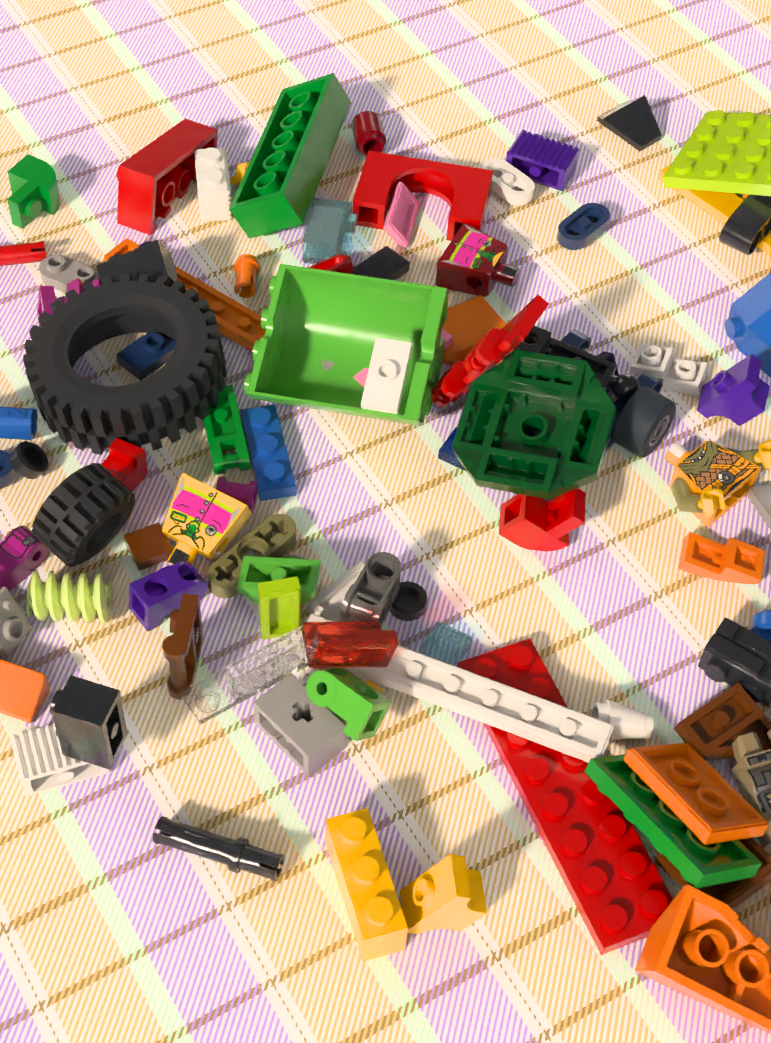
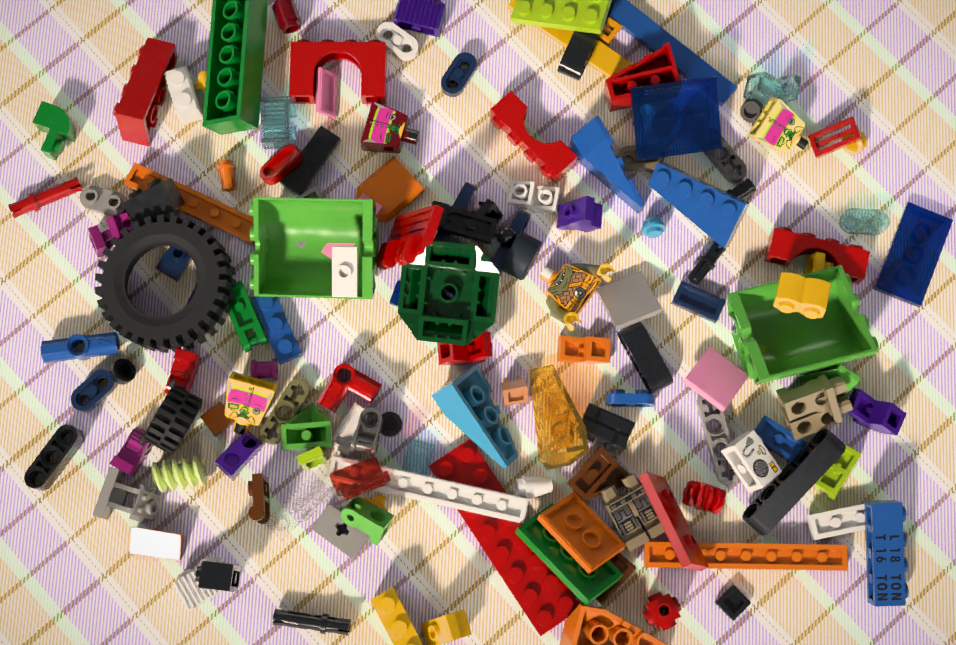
camera: 10 degrees left, 25 degrees up
(340, 536) = (358, 384): none -> red piece
(535, 590) = (470, 407): none -> dark azure wedge
(609, 589) = (514, 391): none -> nougat tile
(674, 637) = (558, 425): none -> clear yellow wedge
(700, 329) = (553, 158): none -> red arch

